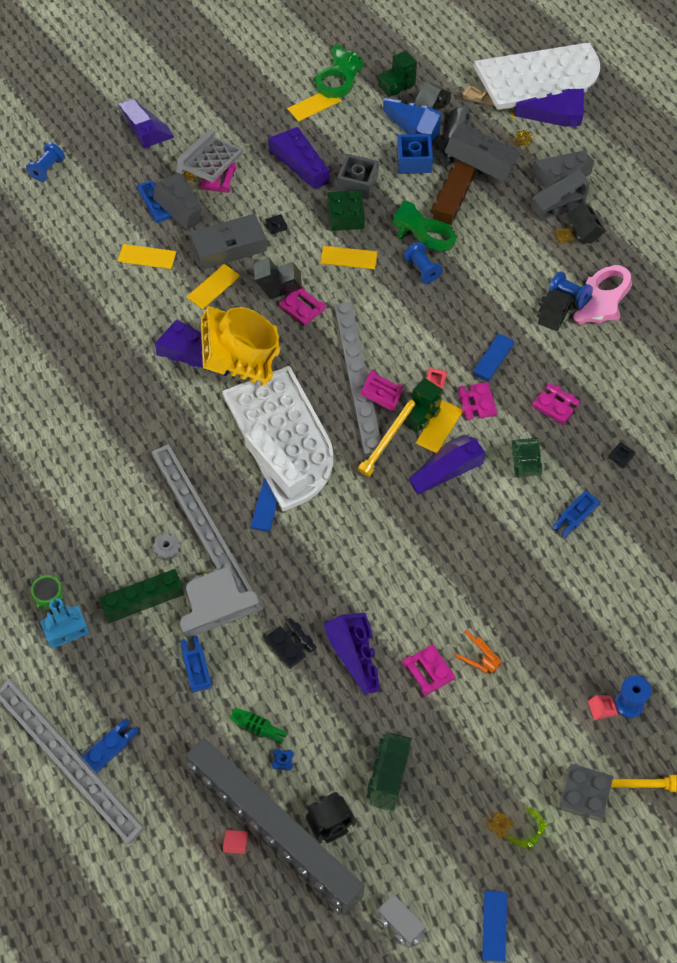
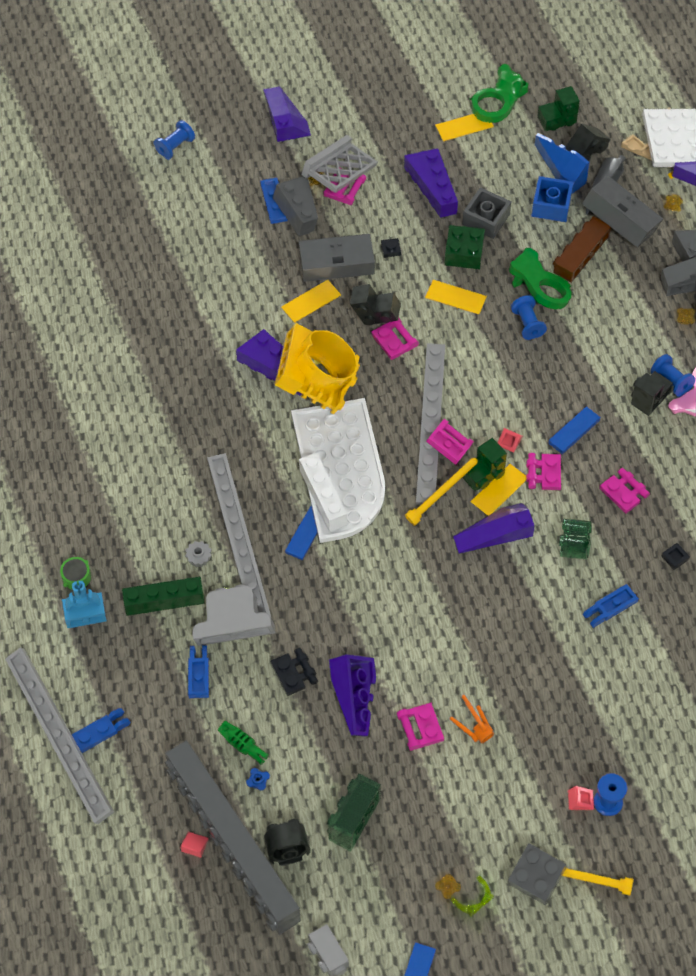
camera: 15 degrees right, 0 degrees up
(147, 256) = (252, 257): yellow piece -> none

